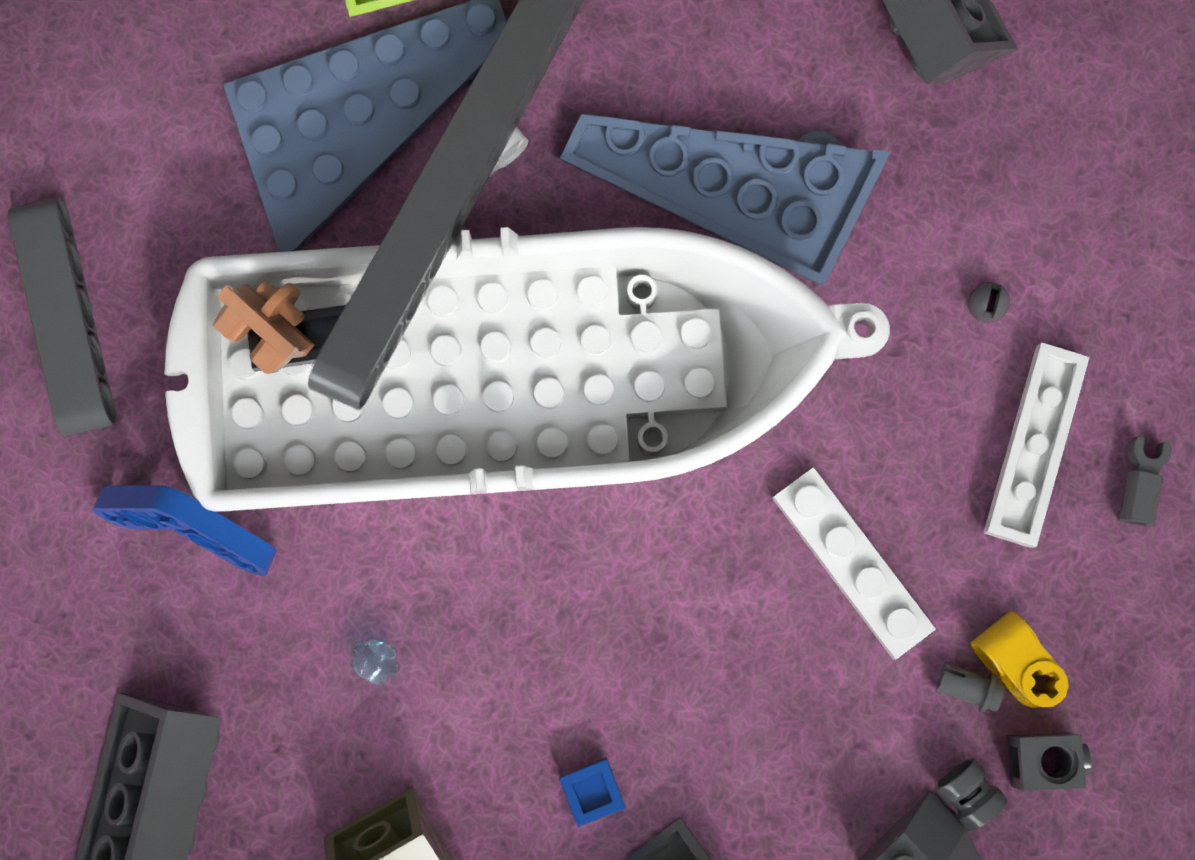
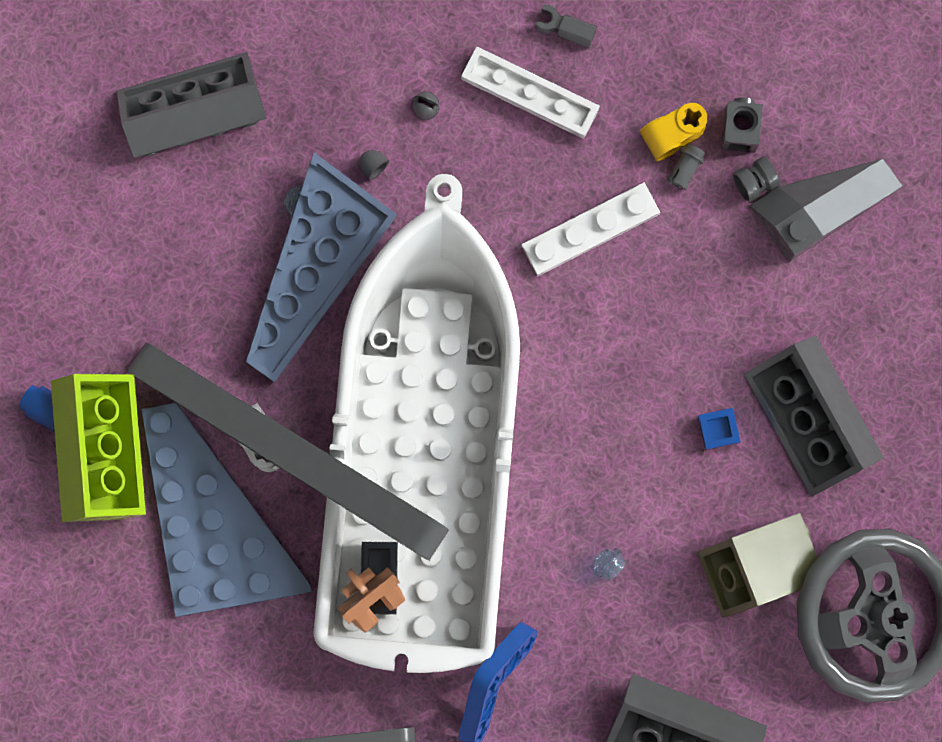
camera: 80 degrees left, 0 degrees up
(891, 242) = (373, 163): none -> dark grey hinge

